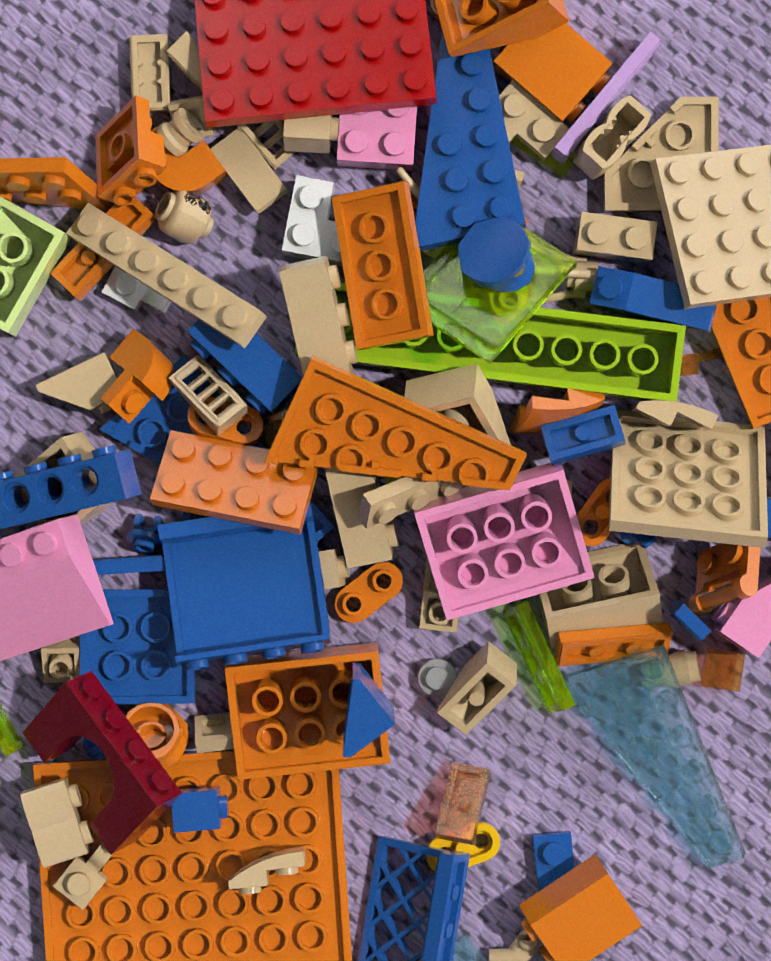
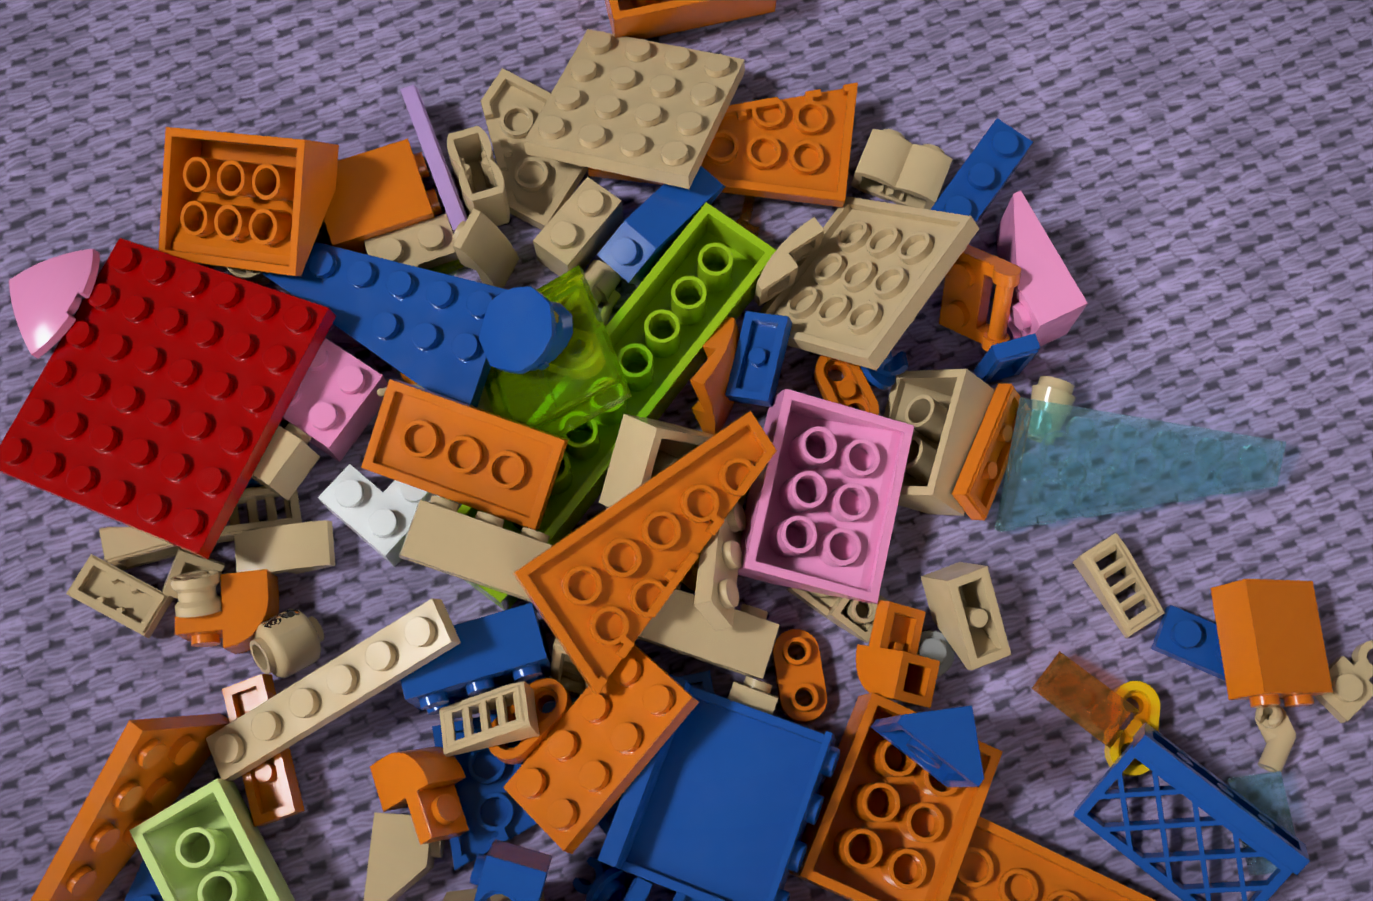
camera: 65 degrees left, 15 degrees down
(128, 154) = (182, 660): orange plate -> none
(132, 292) = (329, 745): white plate -> none
(409, 652) = (891, 659): none -> orange brick
(538, 657) = (965, 535): clear neon green tile -> none
(554, 179) = (484, 249): none -> tan slope
(577, 759) = (1126, 564): none -> tan slope
(722, 669) = (1072, 360): clear orange plate -> none

